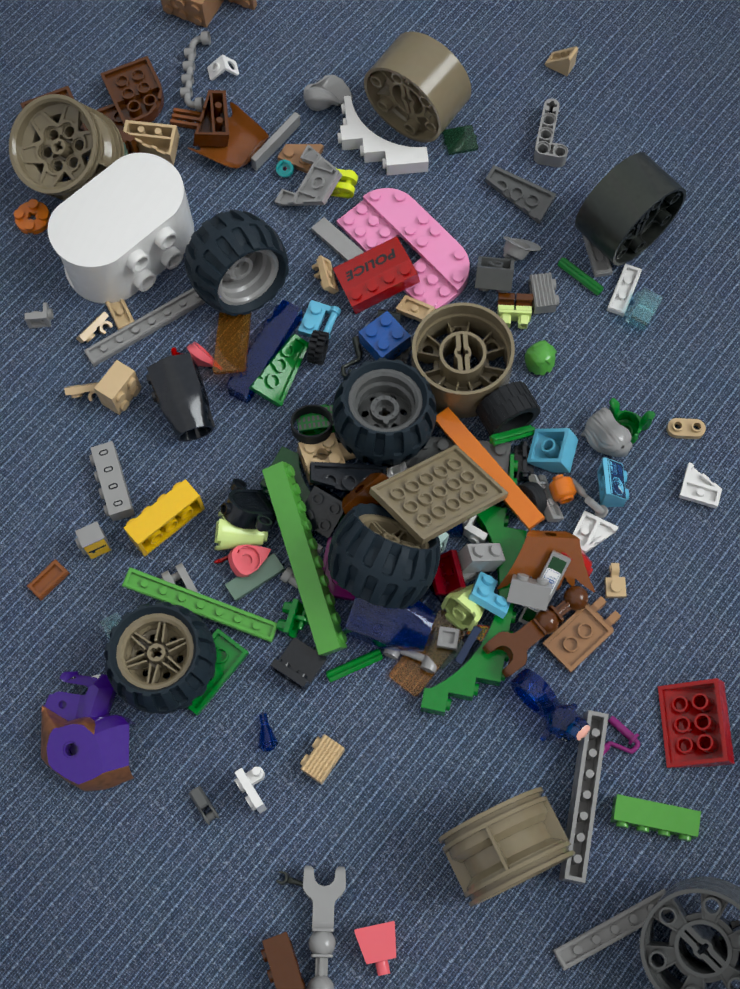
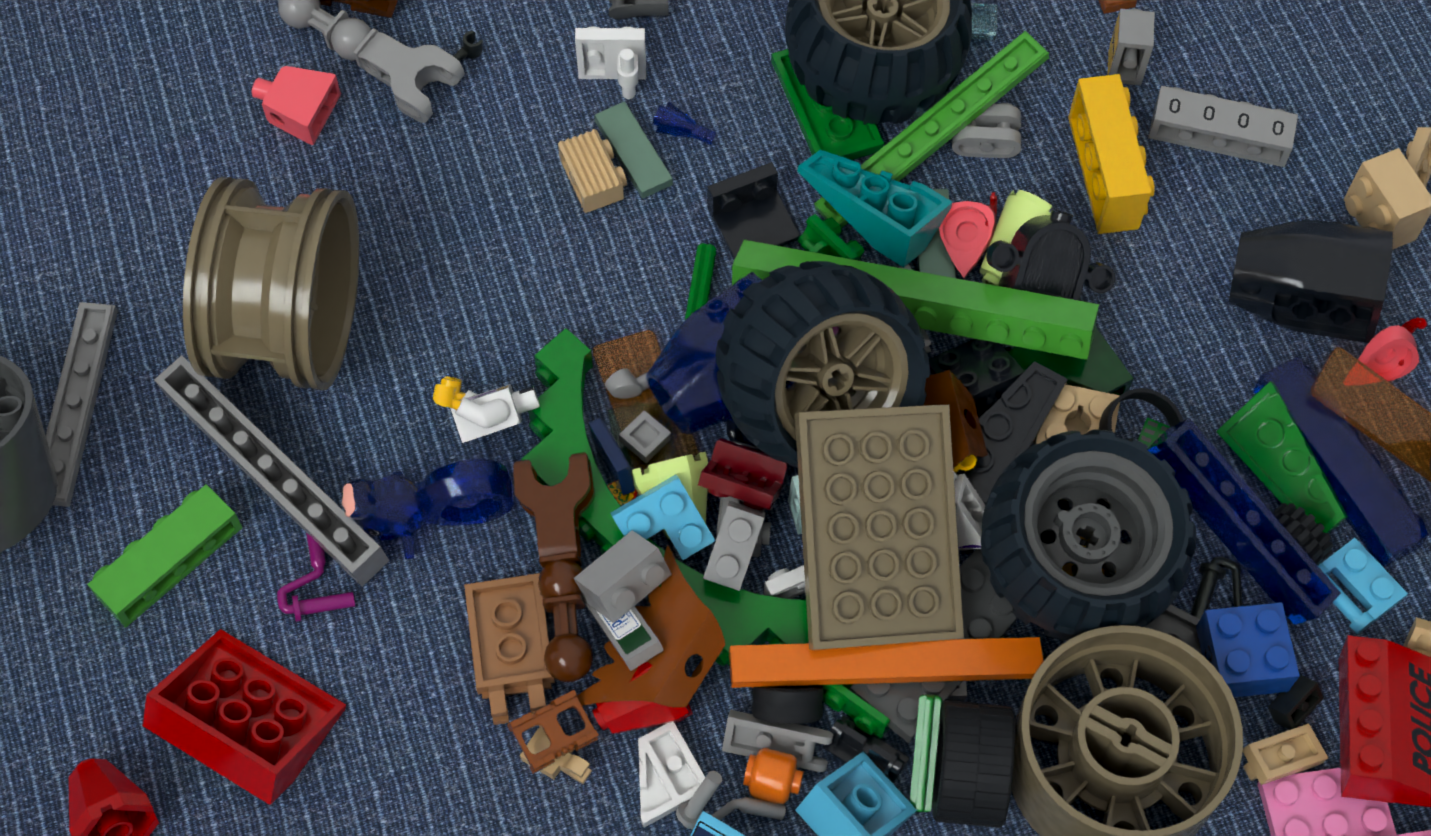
camera: 120 degrees right, 5 degrees down
(260, 602) = (885, 212): none -> teal wedge
(294, 750) = (633, 150): none -> sand green tile
(329, 365) = (1245, 523): none -> clear blue brick
(488, 714) = (483, 412): none -> white torso
(607, 590) = (559, 741): none -> dark orange piece

